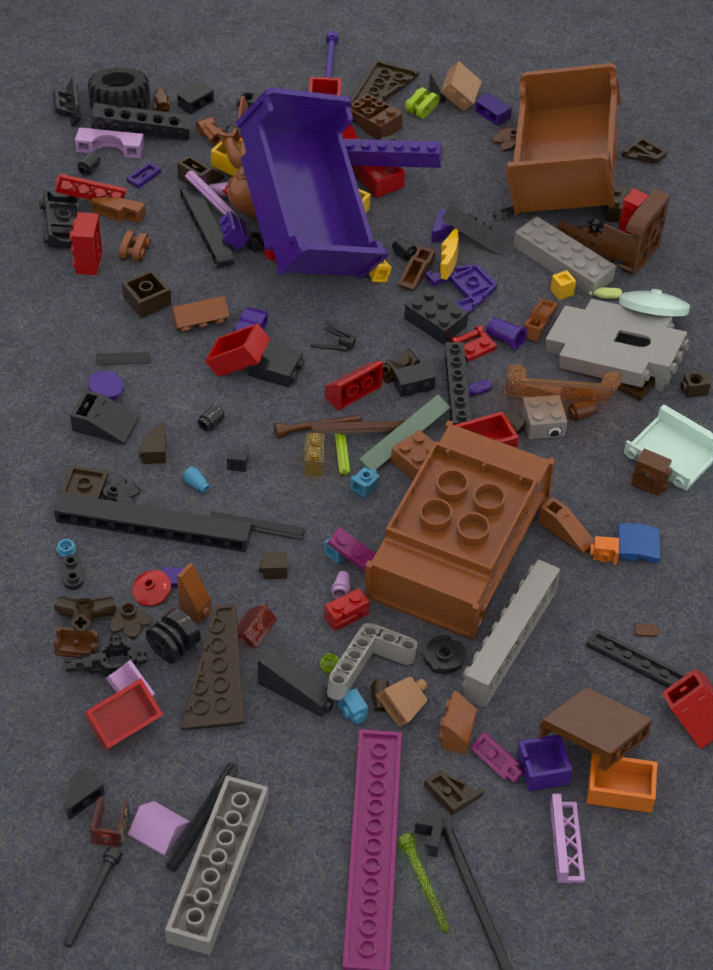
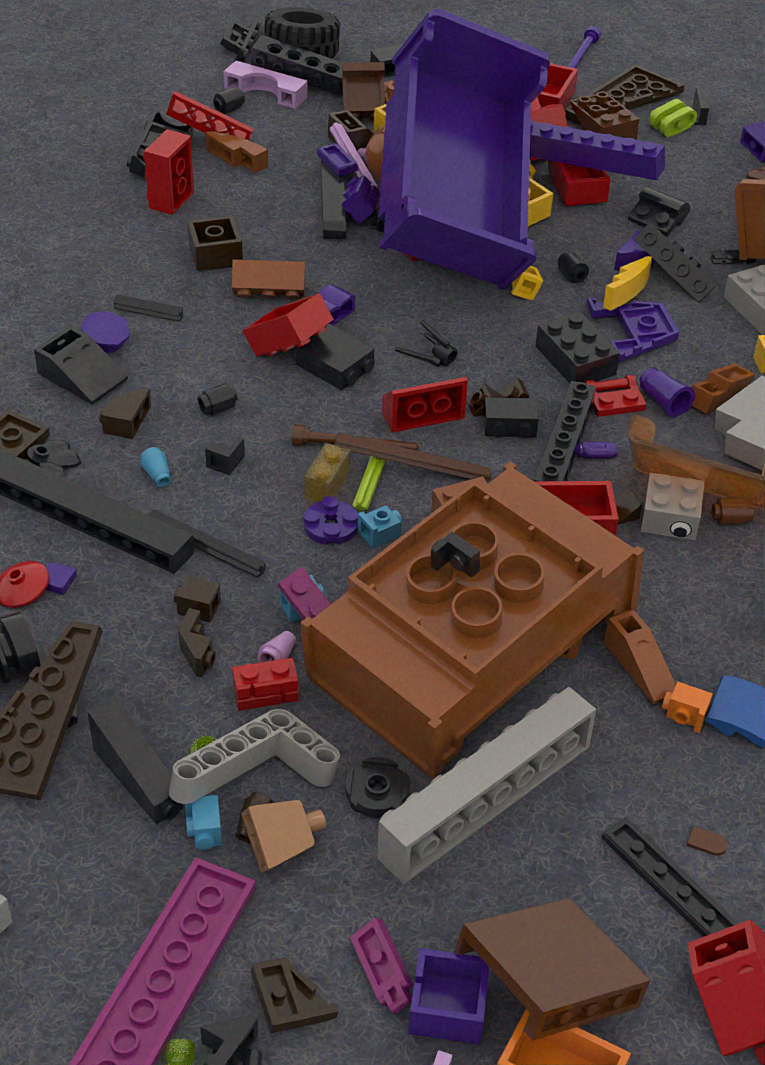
camera: 20 degrees right, 5 degrees down
(139, 250) = (232, 191): dark orange brick -> none
(145, 176) = (288, 125): dark purple tile -> none
(161, 100) = (352, 53): reddish brown arm -> none
(190, 134) = (363, 88): none -> reddish brown panel
(193, 595) = (55, 595): dark orange slope -> none
(201, 200) = (337, 159): none -> dark purple tile
(256, 625) = (130, 671): clear red panel -> none
(289, 598) = (194, 645): none -> dark brown slope
(327, 478) = (330, 509): none -> dark purple plate
(416, 268) = (577, 289): reddish brown slope -> none
(418, 421) = (418, 495): sand green tile -> none
(444, 188) = (660, 210): none -> black brick
(450, 494) = (456, 551): none -> black bracket
(457, 724) = (342, 893): dark orange slope -> none
(461, 86) = (729, 108): medium nougat brick -> none

